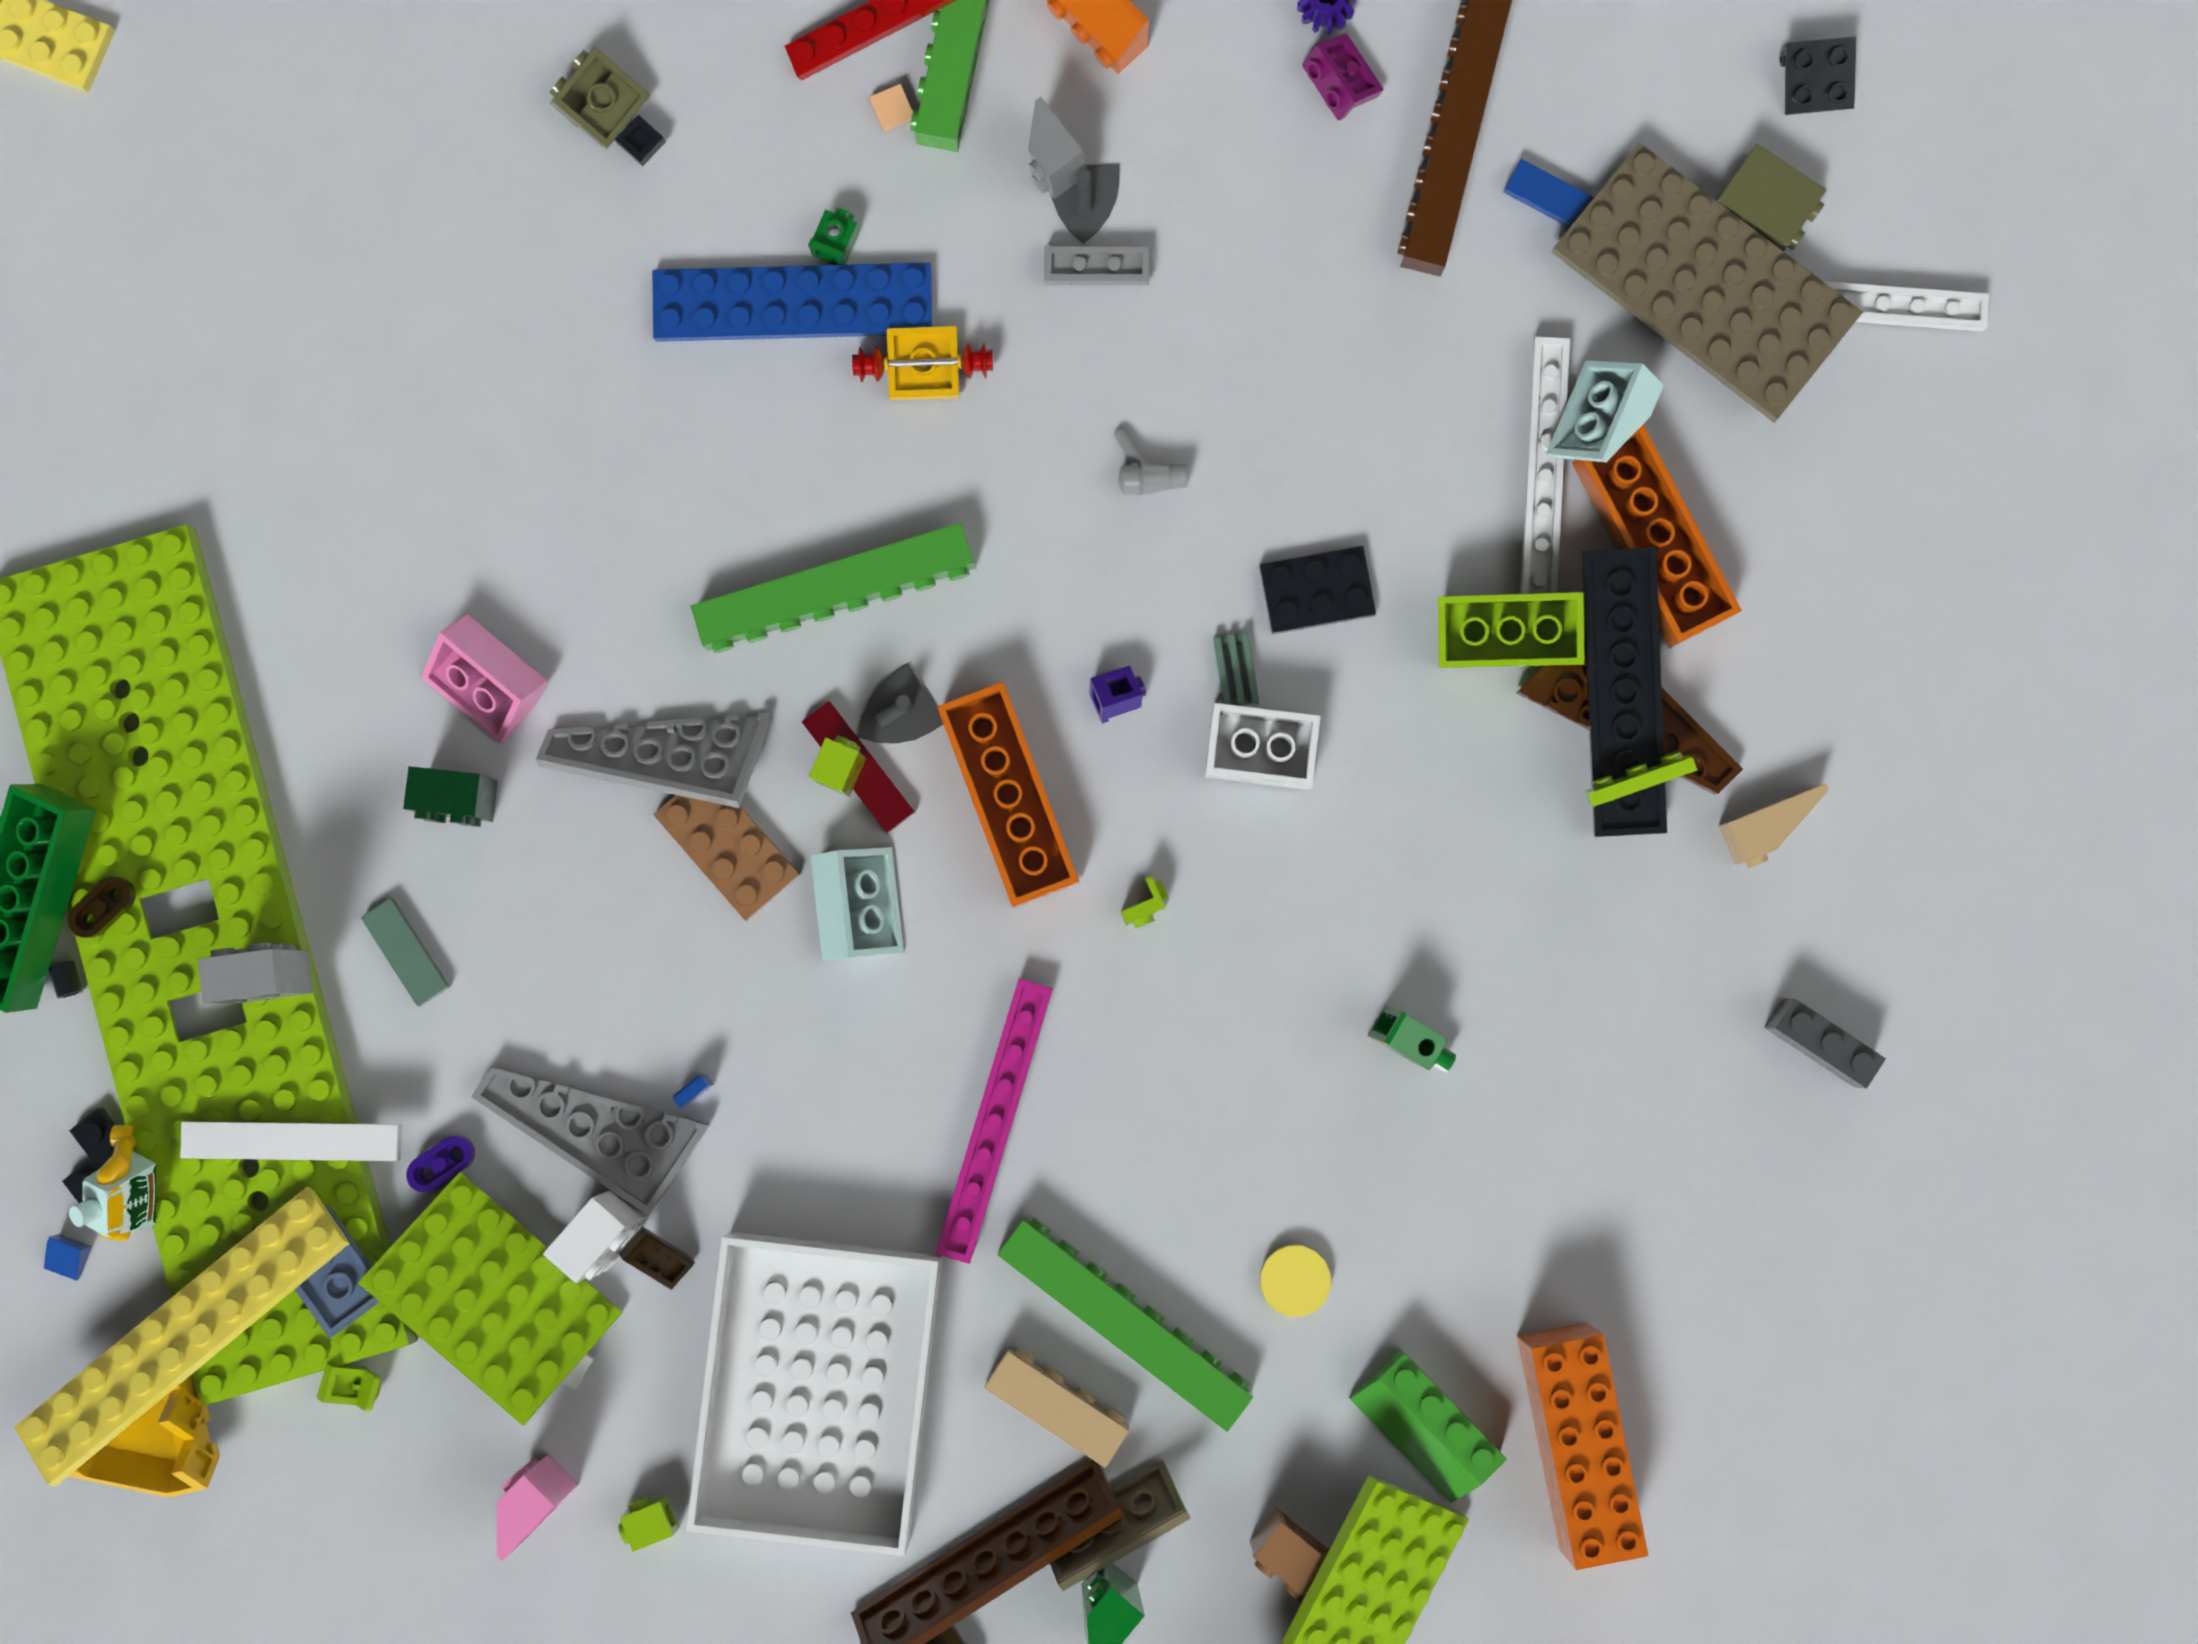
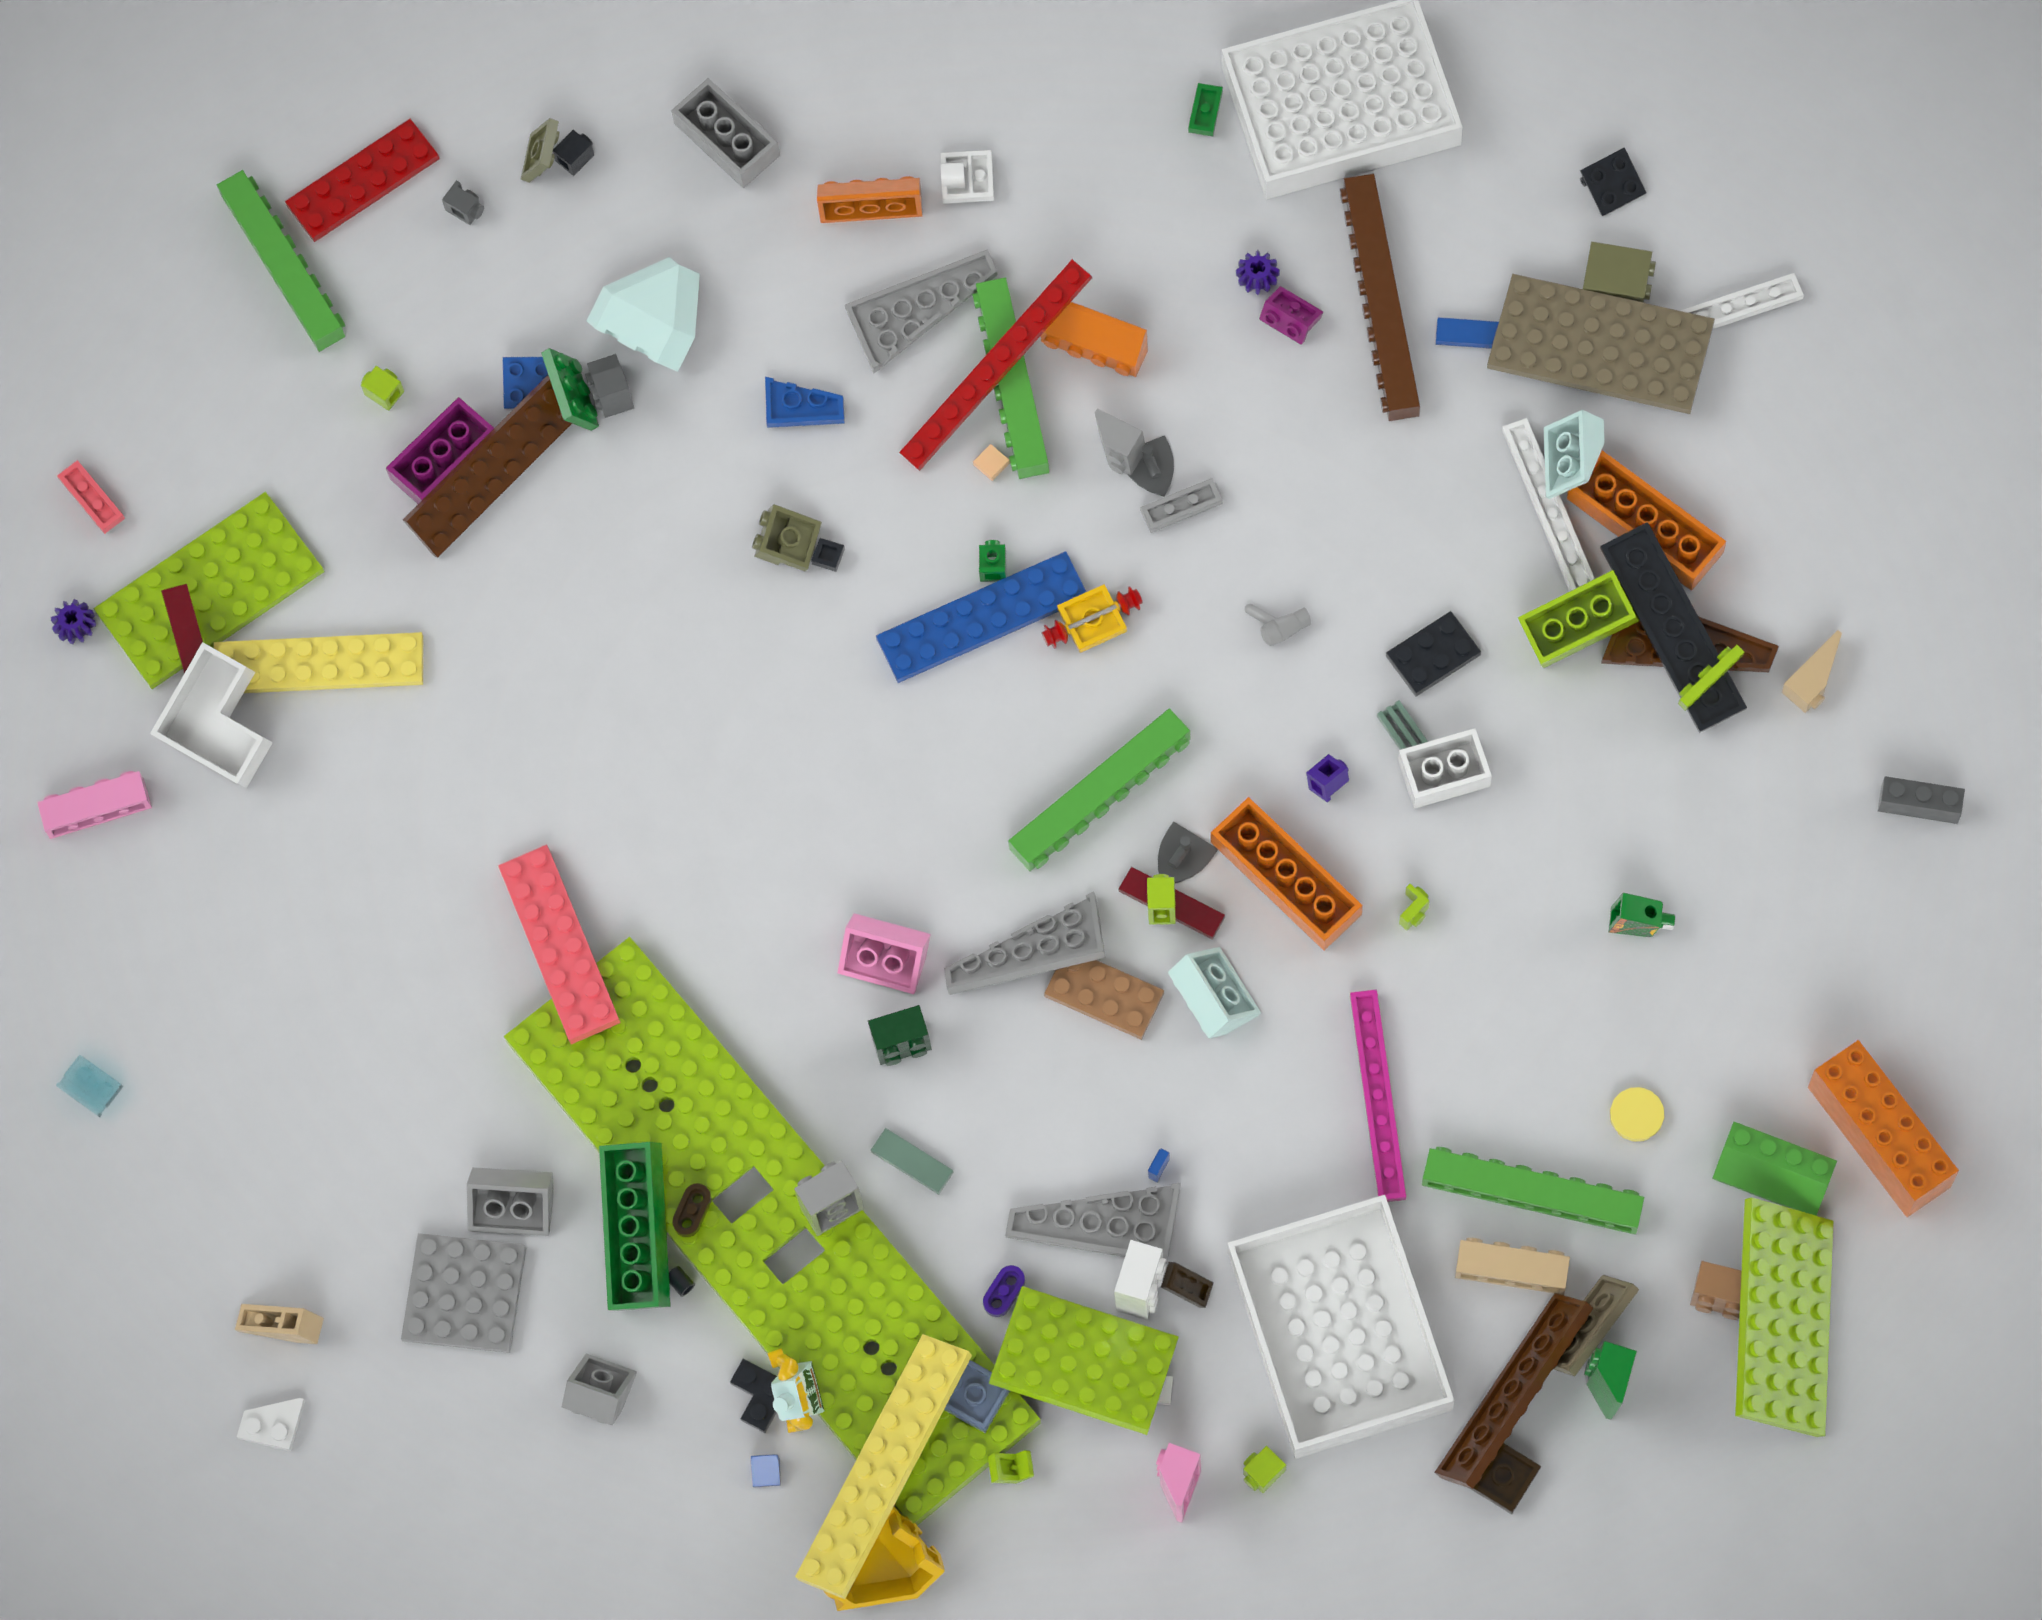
camera: 20 degrees left, 15 degrees down
(95, 498) = (559, 944): none -> coral plate
(291, 1141) = (895, 1311): white tile -> none

